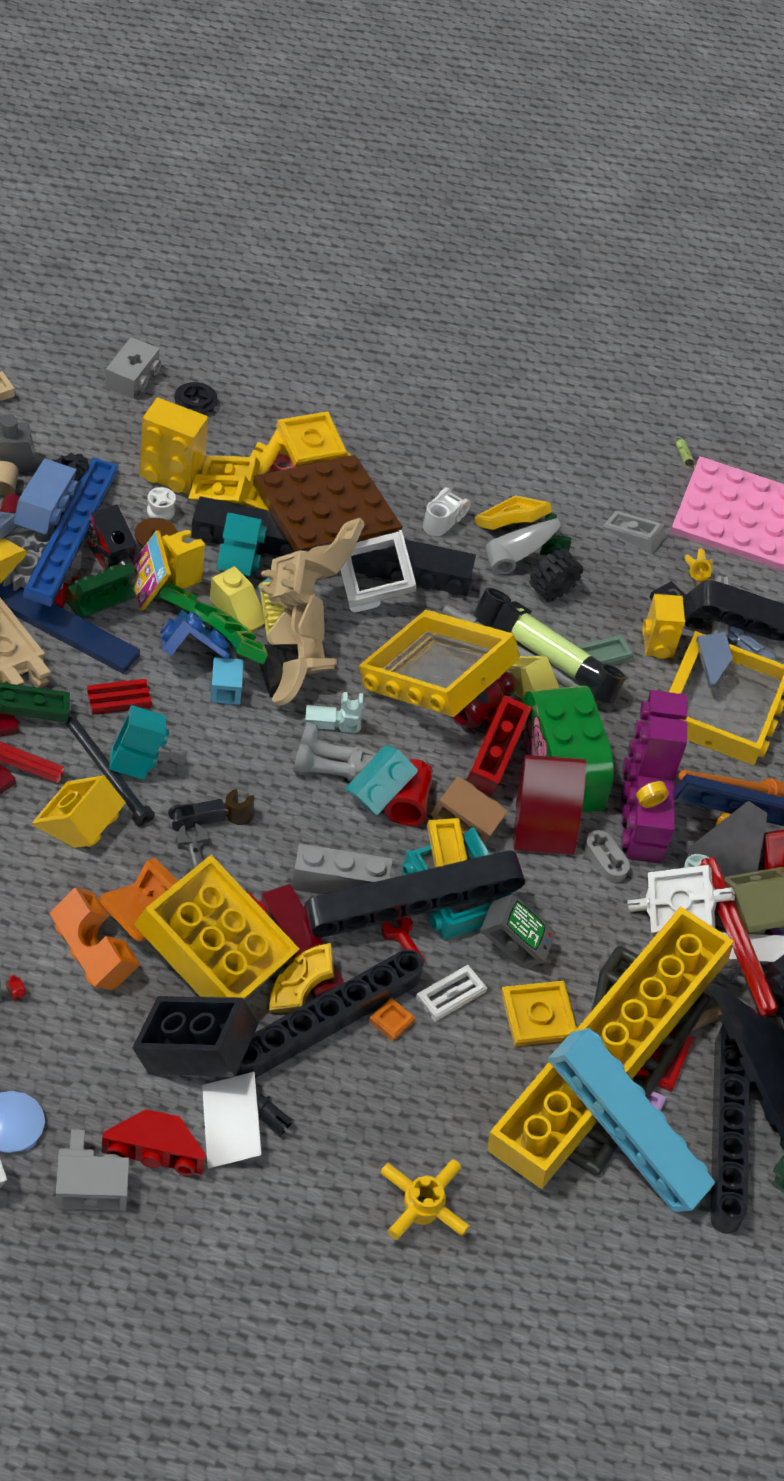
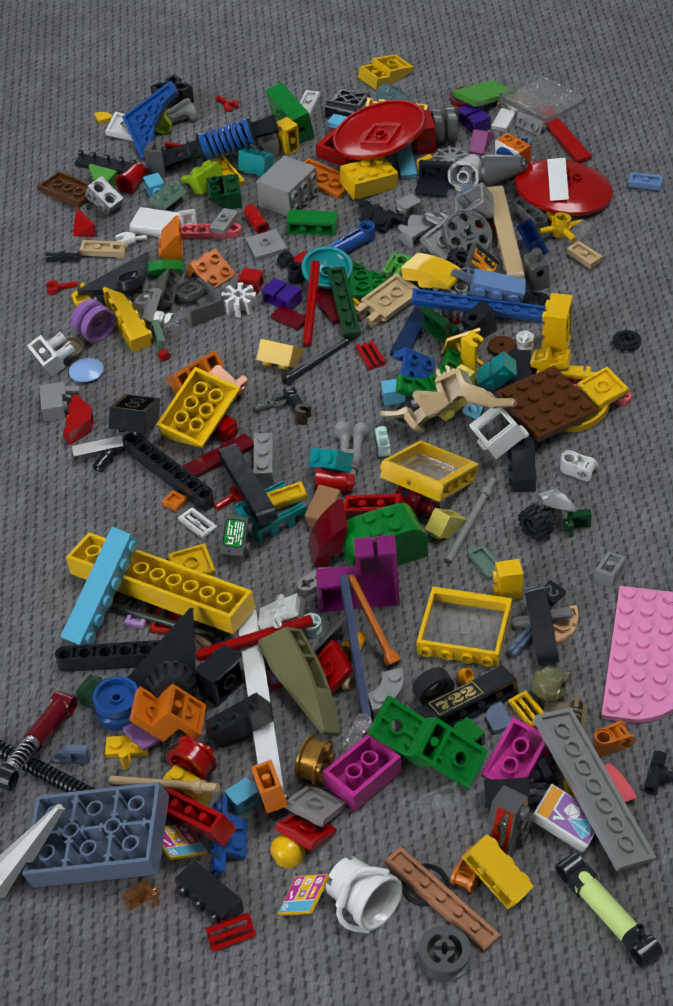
camera: 95 degrees right, 5 degrees down
(132, 368) = (635, 306): light grey brick -> none
(138, 742) = (325, 357): teal piece -> none
(300, 977) = (192, 457): yellow tile -> none
(433, 1204) = (56, 524): yellow bar -> none
(512, 617) = (471, 530): piece -> none
(513, 510) = (590, 498): yellow tile -> none
(652, 794) = (334, 566): yellow tile -> none
(699, 568) = (575, 599): yellow piece -> none
(715, 655) = (489, 608): sand blue tile -> none

